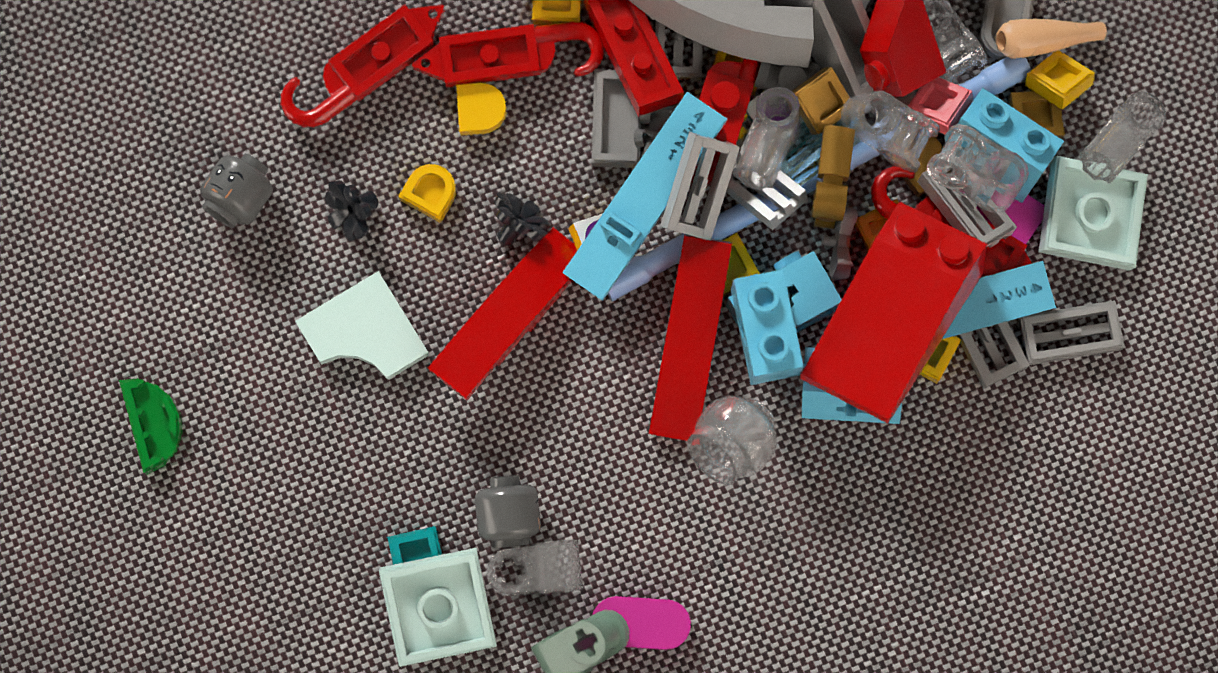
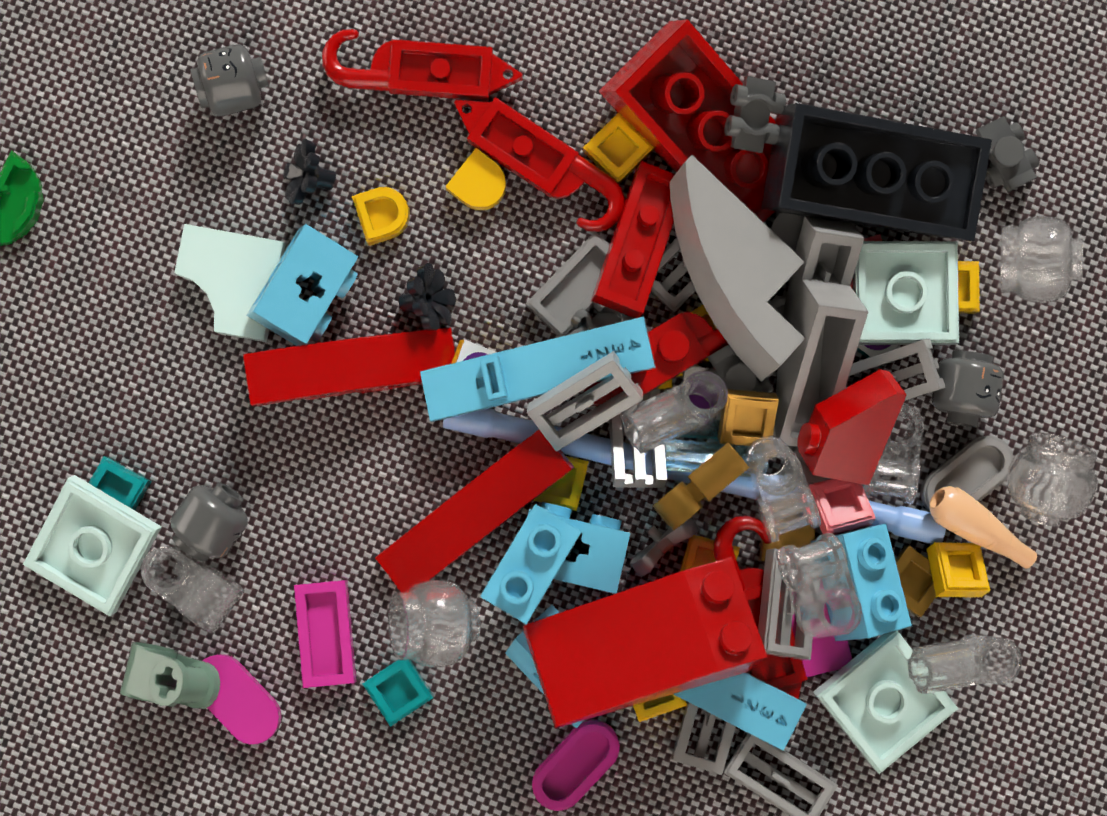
camera: 45 degrees right, 5 degrees up
(416, 310) = (306, 256): none -> medium azure brick
(661, 520) = (325, 634): none -> dark pink tile
(750, 513) = (398, 690): none -> teal tile
(922, 452) = (575, 765): none -> dark pink tile

